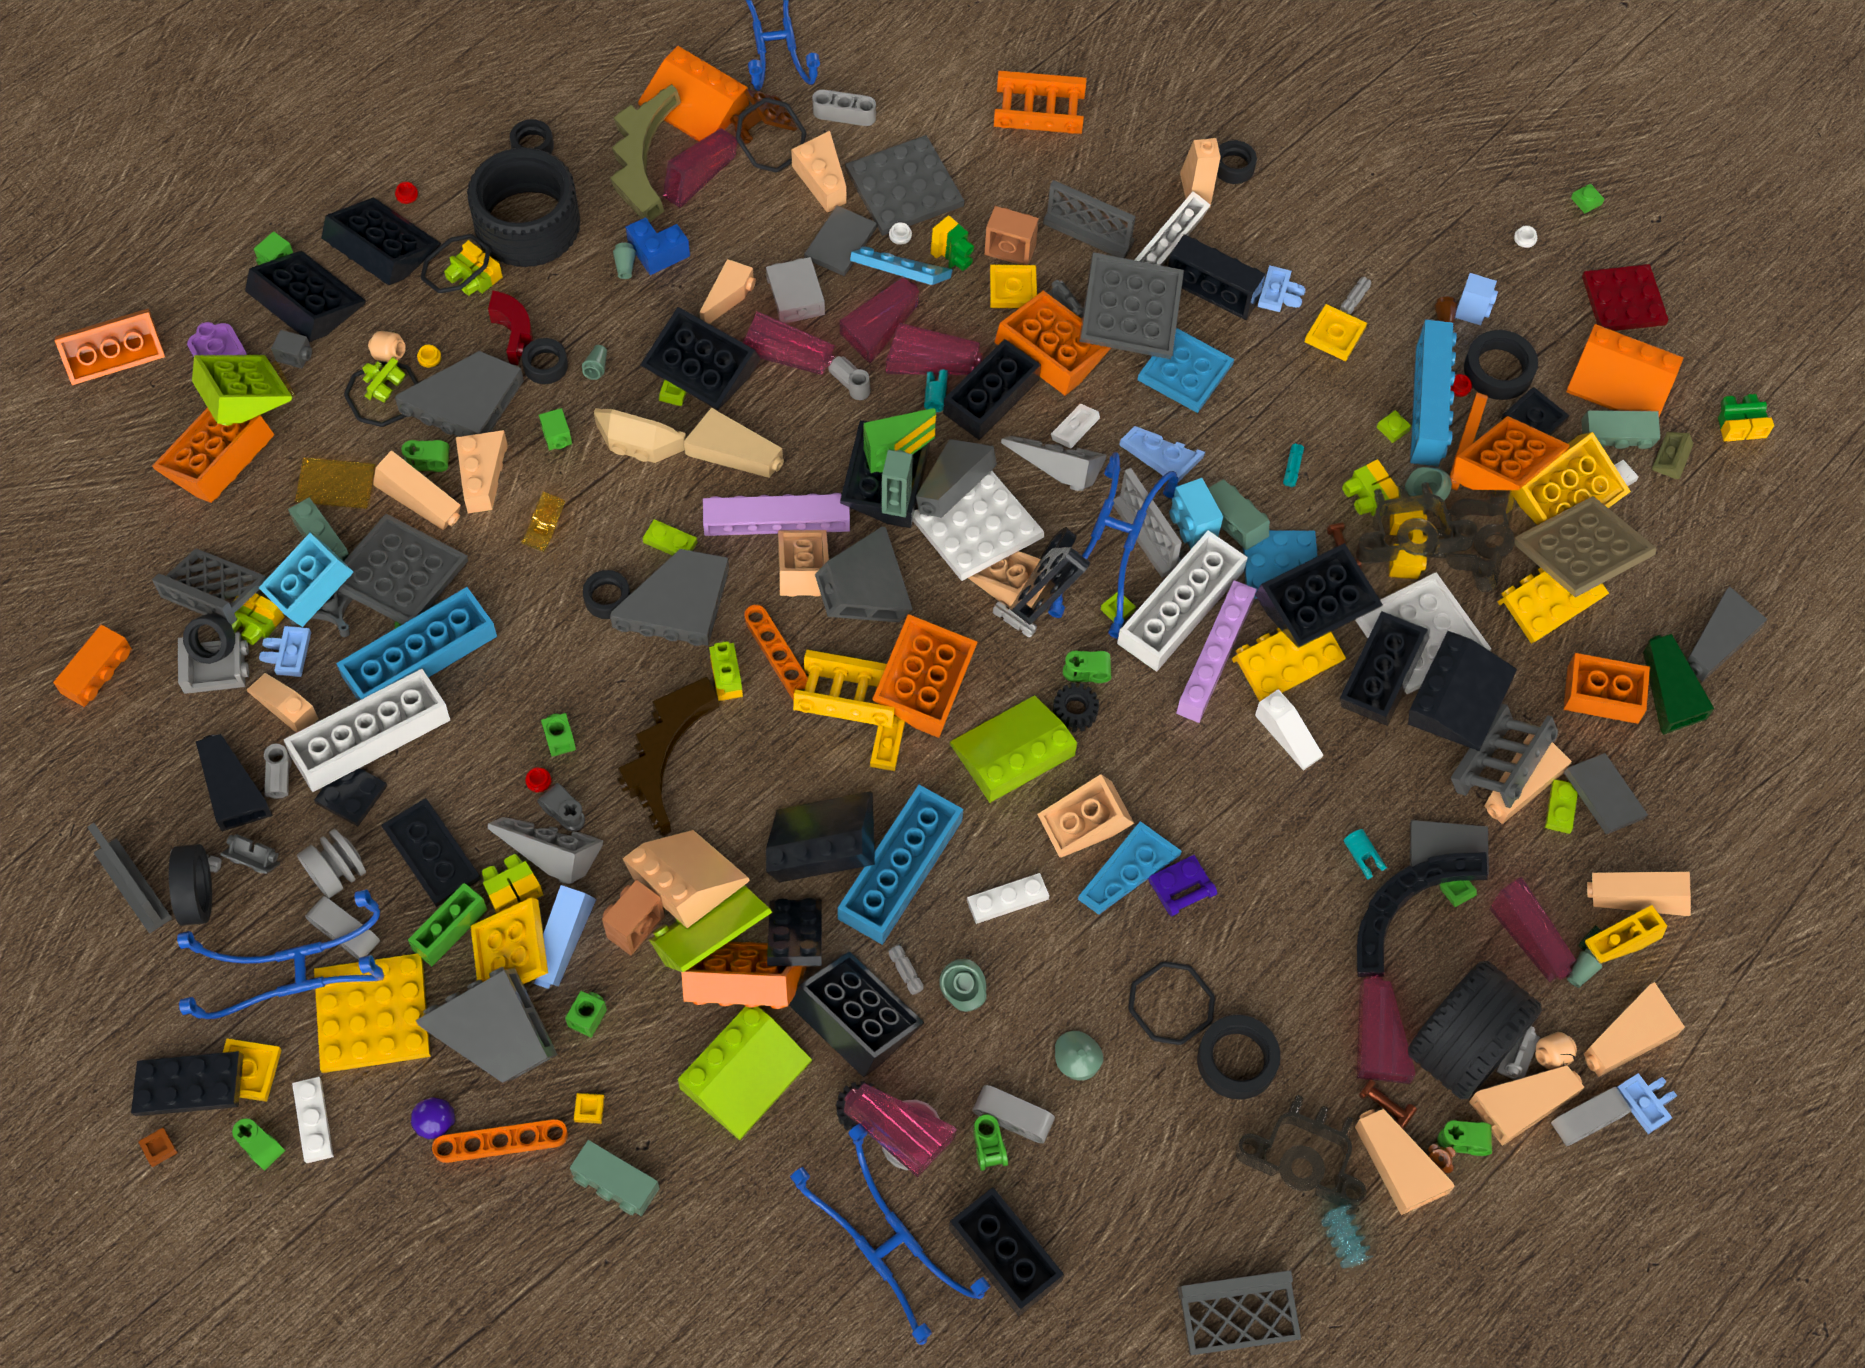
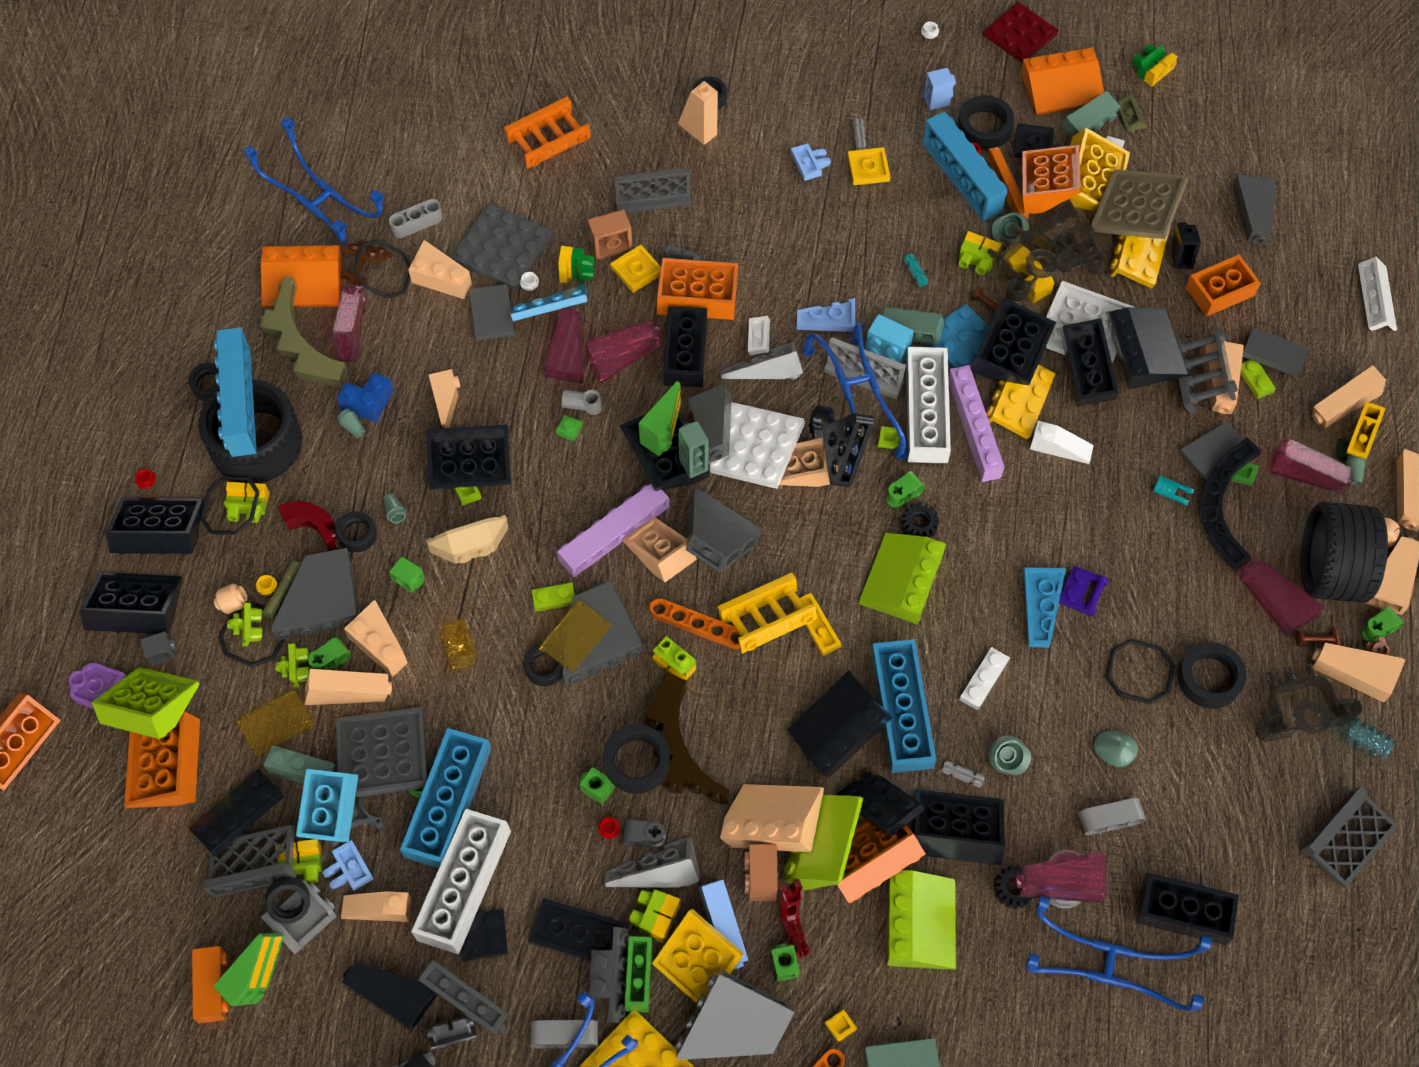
camera: 35 degrees left, 0 degrees up
(129, 676) = (251, 972): none -> bright green slope
(236, 536) = (236, 812): none -> black plate
(272, 248) = (79, 586): bright green brick -> none
(275, 830) = (465, 998): none -> dark grey fence
(277, 772) = (419, 960): light grey piece -> none
(331, 863) = (521, 989): light grey wheel -> none
(391, 440) = (296, 673): none -> lime hips
(421, 903) = (609, 973): none -> dark grey bracket
(422, 374) = (276, 600): none -> olive piece
(524, 157) = (235, 392): none -> dark azure brick
(598, 705) = (633, 733): none -> black tyre
(628, 978) = (790, 916): none -> dark red piece
(651, 585) = (575, 636): none -> clear yellow piece
(733, 445) = (543, 501): tan slope -> none
(788, 345) = (521, 406): clear pink slope -> none
(796, 290) = (492, 365): light grey panel -> none
(819, 395) = (569, 428): none -> bright green plate
(924, 674) = (812, 567): orange slope -> none
(935, 390) = (647, 373): teal hinge -> none
(989, 1148) = (1115, 848): bright green piece -> none
(1011, 618) = (829, 491): light grey axle -> none
(1085, 817) = (988, 590): light nougat slope -> none
(1131, 305) = (733, 230): dark grey plate -> none
(1180, 223) = (714, 182): white brick -> none
(1190, 372) = (796, 251): dark azure plate -> none
(1217, 277) = (766, 177): black brick -> none
(1394, 426) = (954, 204): lime plate -> none
(1446, 309) = (923, 108): reddish brown cone -> none
(1610, 613) = (1185, 237): none -> black torso
(1674, 686) = (1263, 259): dark green slope -> none
(1780, 812) = (1377, 294): none -> white panel

